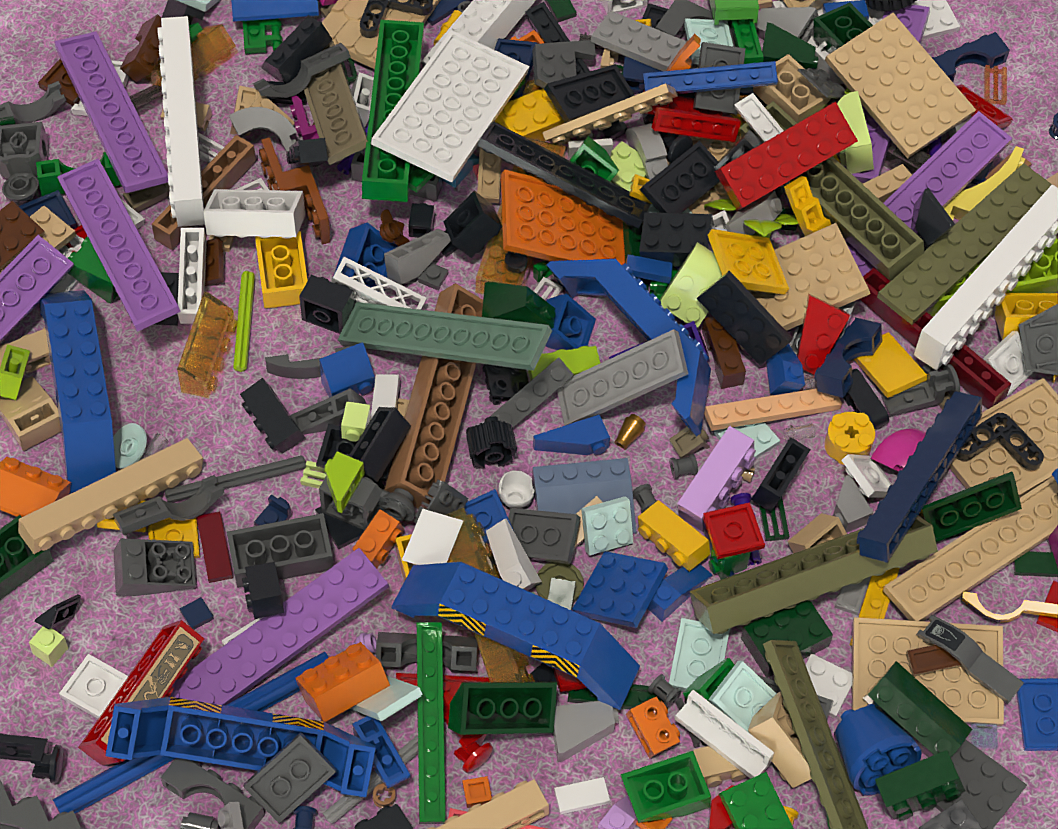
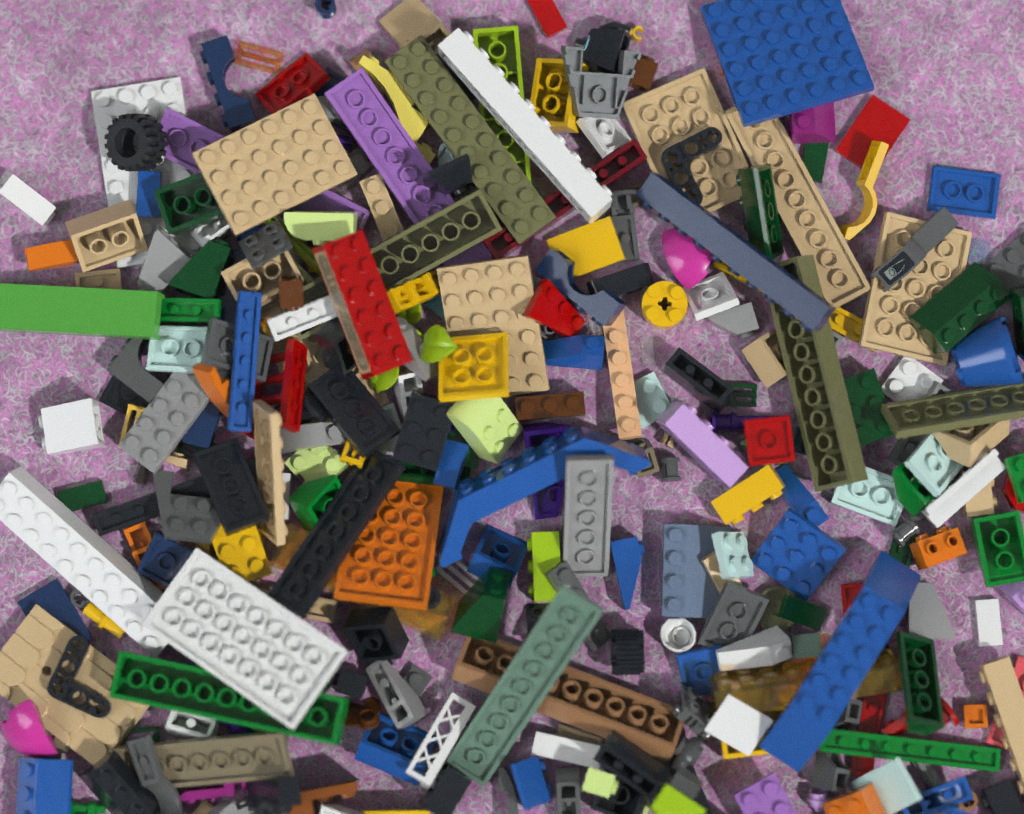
camera: 75 degrees left, 25 degrees up
(379, 537) = (722, 779): orange brick -> none
(631, 429) = (624, 514): pearl gold cone -> none
(644, 496) = (701, 512): dark grey bush -> none
(744, 318) = (536, 383): black plate -> none
(783, 102) = (290, 292): none -> reddish brown brick
(930, 660) = (911, 288): reddish brown tile -> none

